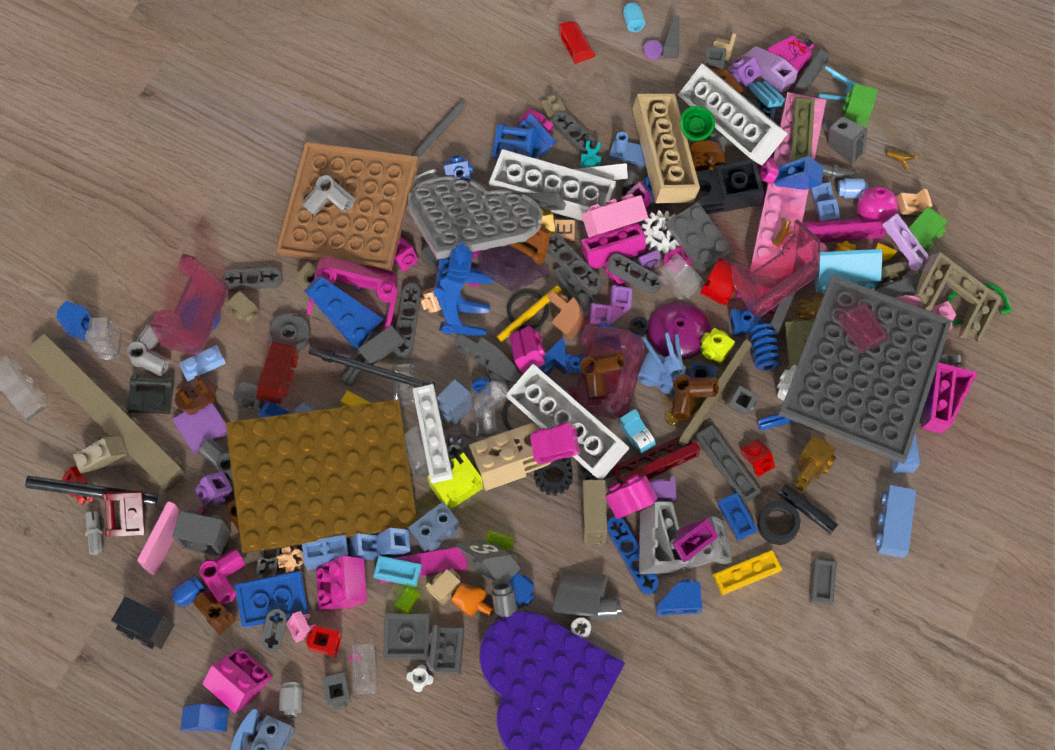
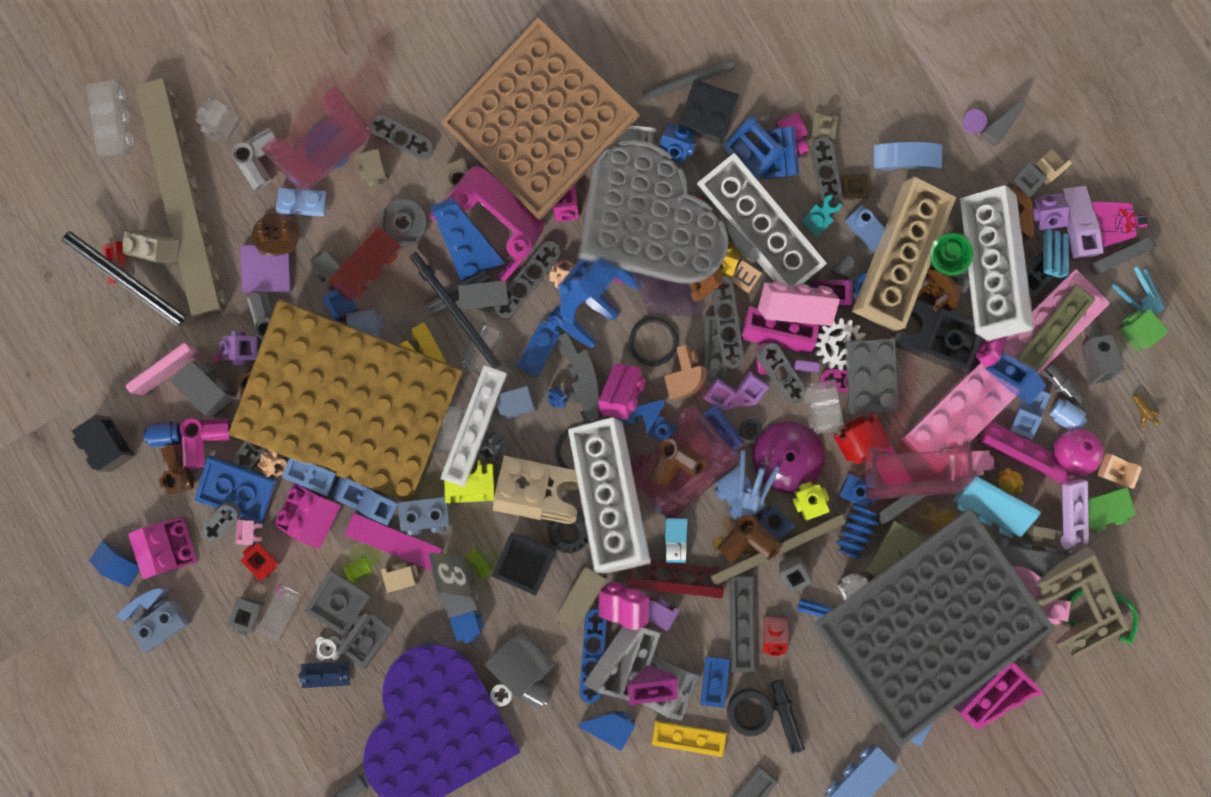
camera: 35 degrees right, 20 degrees up
(74, 319) = (199, 82): blue brick -> none
(93, 533) = (106, 320): light grey axle -> none
(130, 512) = (150, 321): plate -> none
(150, 401) = (229, 210): pearl dark grey plate -> none
(290, 699) = (200, 596): light grey brick -> none
(320, 196) = (514, 95): light grey piece -> none
(397, 571) = (365, 536): medium azure tile -> none
(430, 700) = (324, 674): none -> dark blue hinge
(446, 360) = (539, 348): none -> blue hinge
(467, 138) = (708, 111): none -> black piece
(471, 599) = (417, 604): orange piece -> none
(484, 405) = (547, 421): clear brick -> none
(504, 599) = (442, 631): dark grey brick -> none
(527, 315) = (650, 348): yellow bar -> none
(534, 514) = (523, 563): none -> black piece
(554, 443) = (578, 518): dark pink brick -> none
(575, 42) = (898, 62): red brick -> none
(601, 132) = (855, 187): none -> dark brown tile
(610, 172) = (821, 239): white sticker -> none
(623, 88) = (909, 155): none -> medium blue brick
(634, 17) = (979, 70): medium azure brick -> none
(784, 231) = (956, 429): pearl gold bar -> none
(814, 461) = (824, 678): pearl gold brick -> none
(863, 328) = (957, 588): clear pink plate -> none
(887, 252) = (1047, 504): yellow tile -> none

